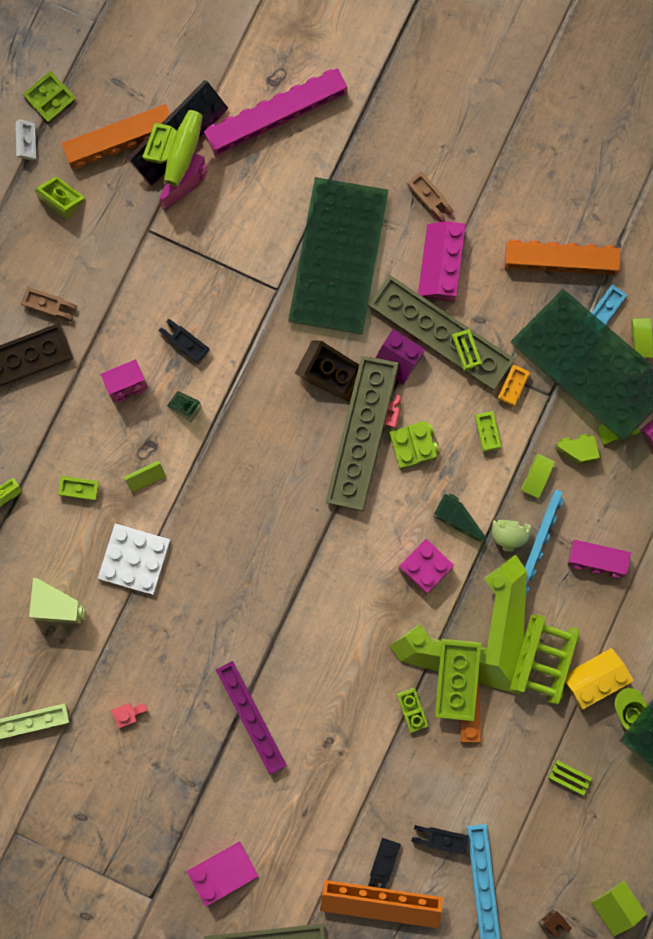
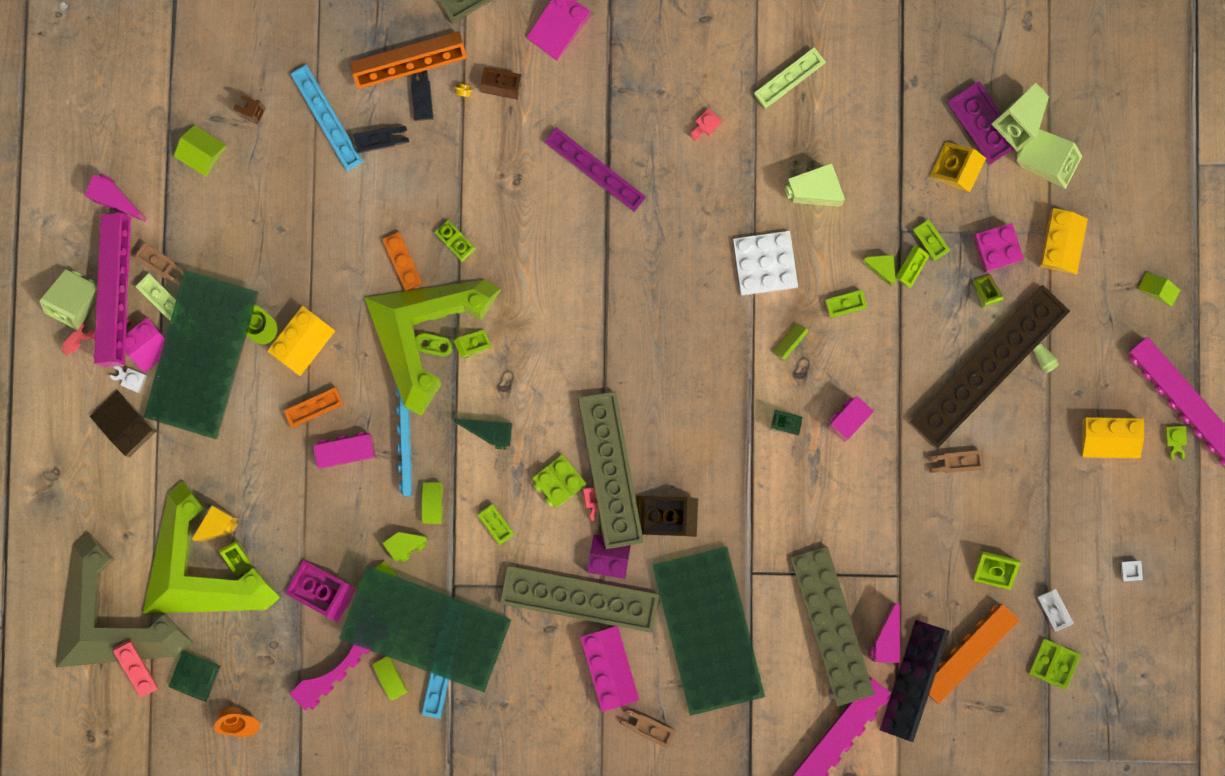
camera: 165 degrees right, 5 degrees up
(28, 506) = (883, 267): none -> lime slope
(174, 146) = (907, 657): lime plate -> none
(185, 342) = (812, 483): black hinge -> none
(227, 210) = (832, 626): none -> olive plate
(302, 841) = (500, 83): none -> reddish brown hinge
(341, 851) = (463, 90): none -> yellow plate
(426, 566) = (498, 372): dark pink brick -> none
(438, 604) = (472, 344): none -> lime slope
(458, 679) = (424, 280): lime plate -> none
(471, 365) = (559, 603): lime tile -> none
(474, 620) = (434, 344): none -> lime plate
(510, 534) = (434, 437): yellowish green cylinder -> none
(513, 385) = (490, 578): light orange plate -> none
(526, 659) = (372, 330): lime fence -> none
(562, 258) = (497, 722): orange brick -> none
(585, 785) = (282, 243): lime tile -> none
(611, 611) = (313, 407): none -> orange plate

